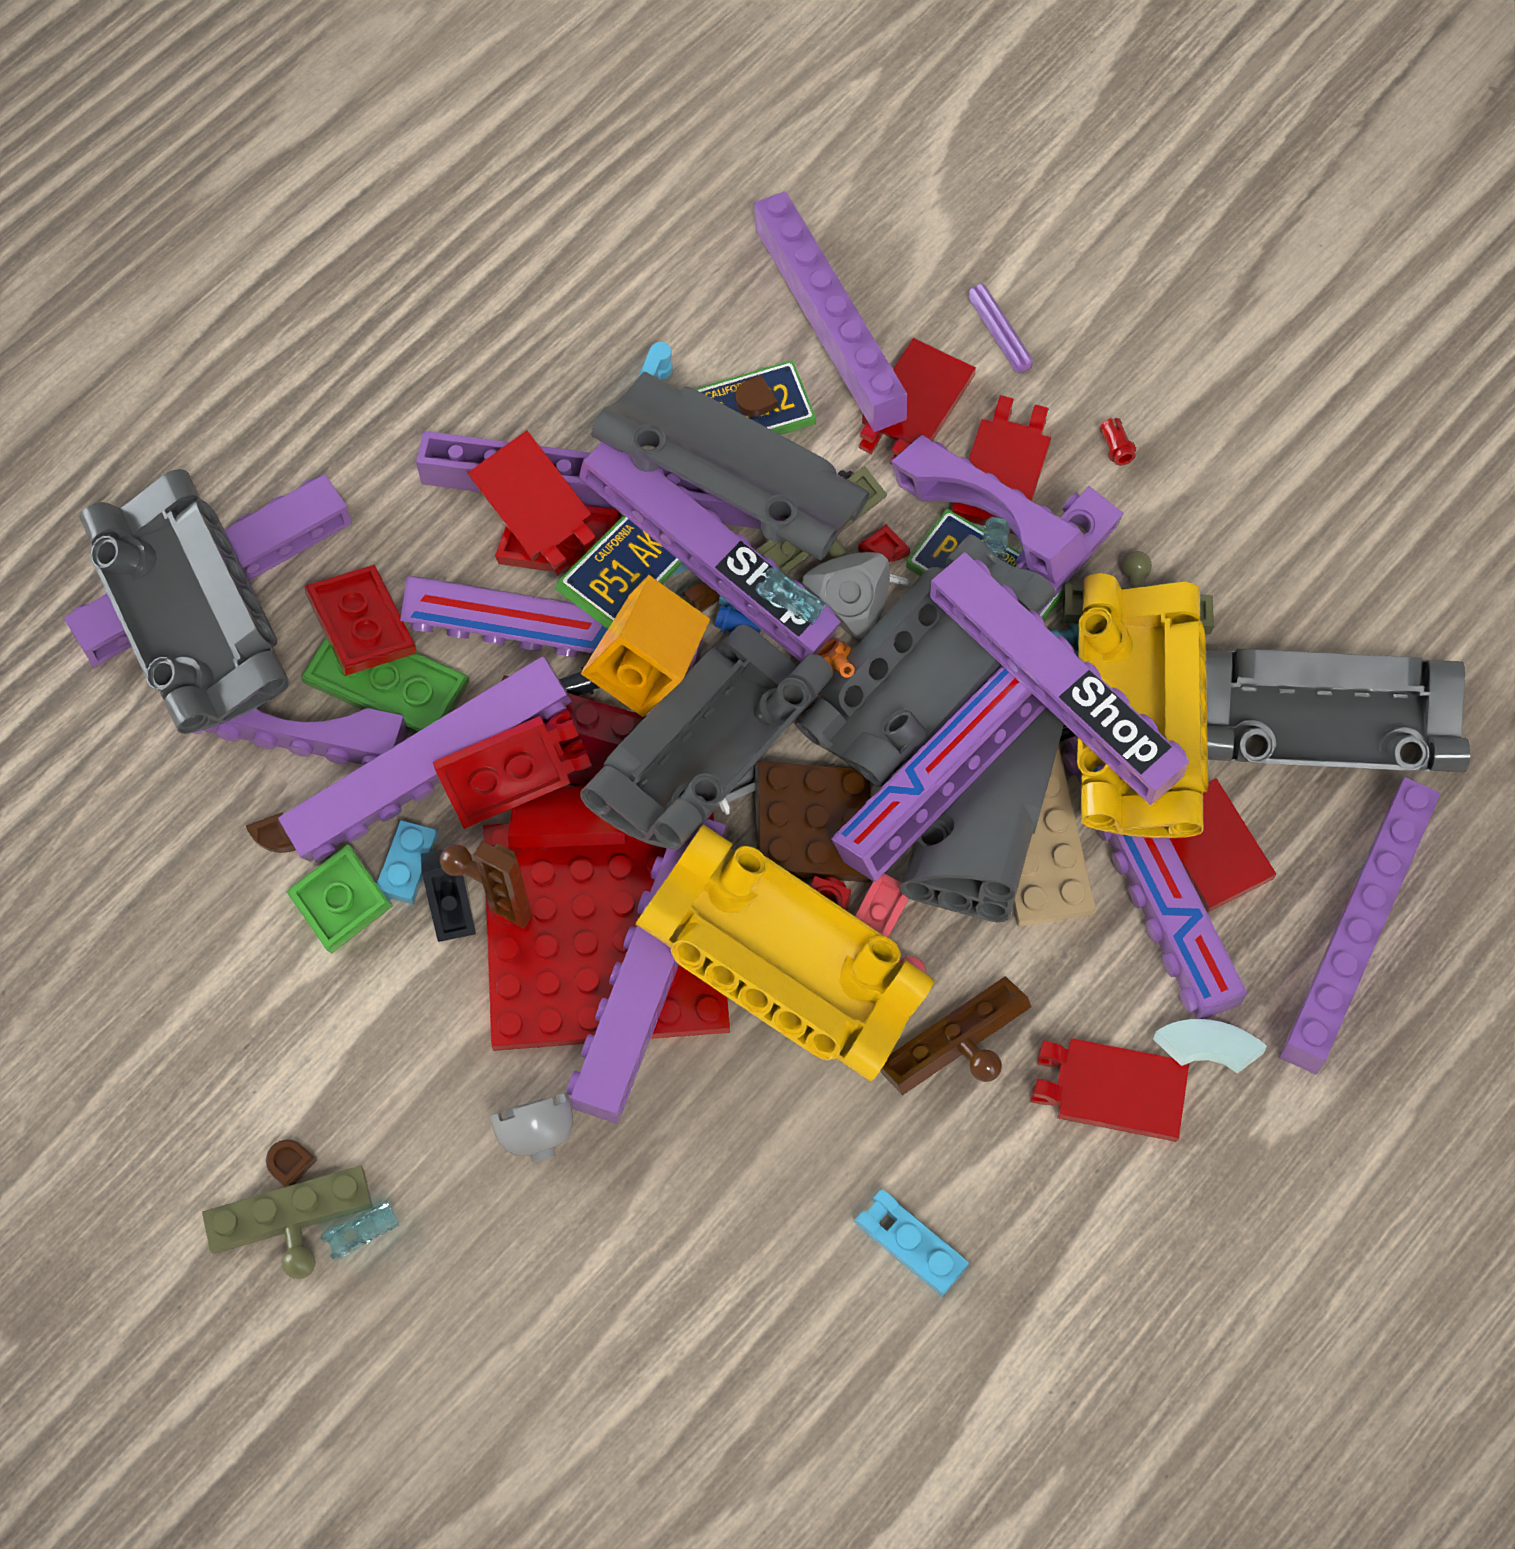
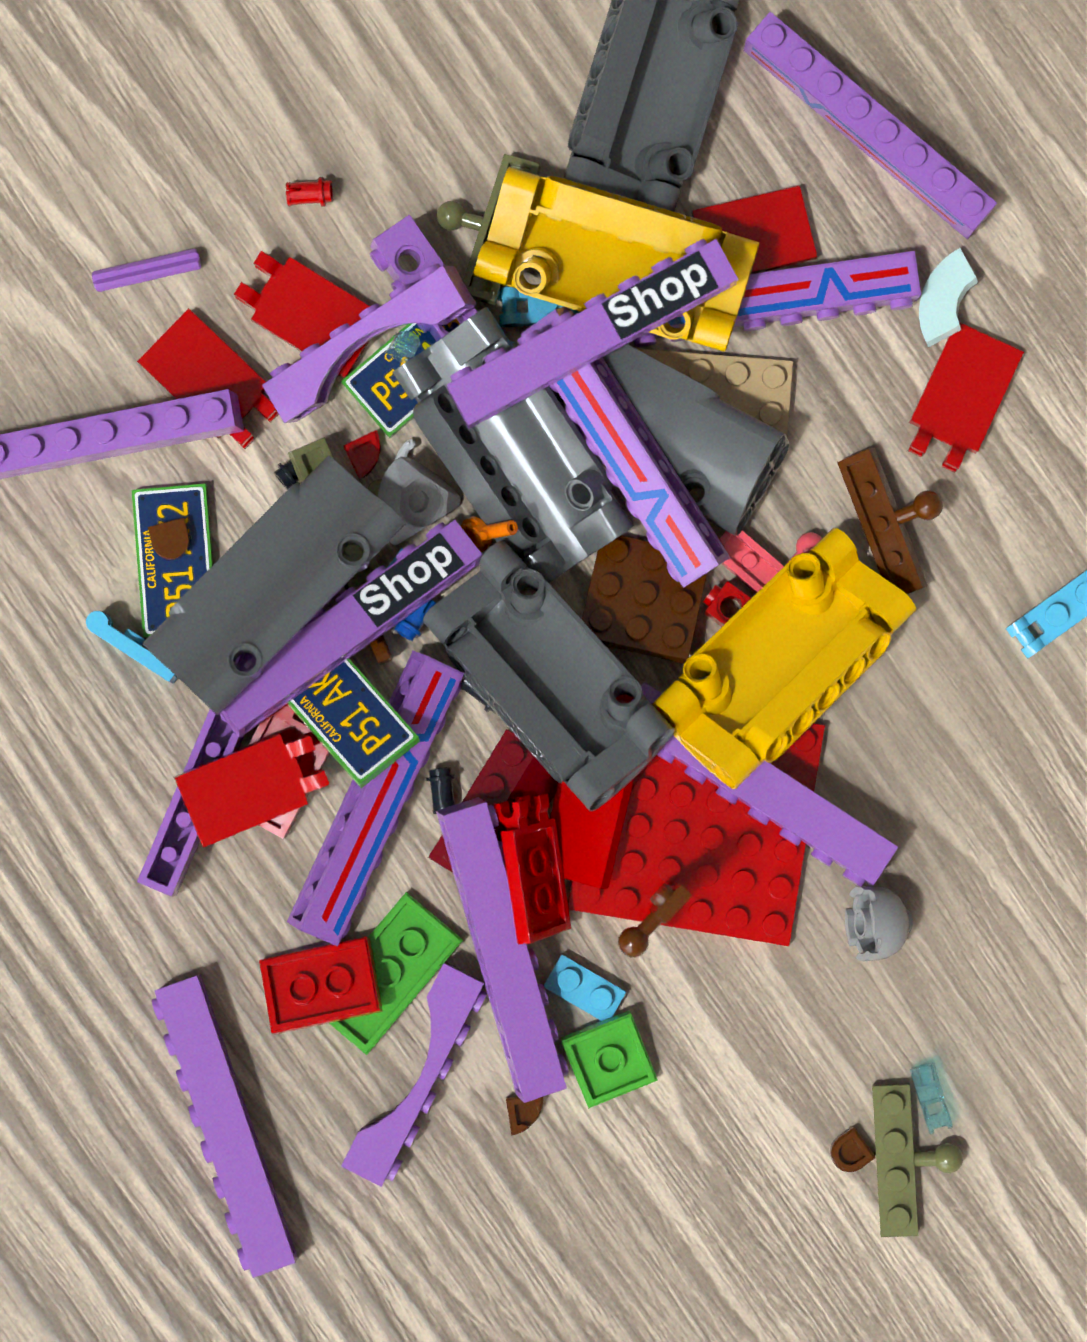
camera: 75 degrees left, 20 degrees up
(185, 603) = (273, 1155): dark grey panel -> none
(447, 899) = (608, 960): black slope -> none
(647, 647) = (449, 711): light orange slope -> none
(797, 600) = (430, 557): clear light blue bar -> none

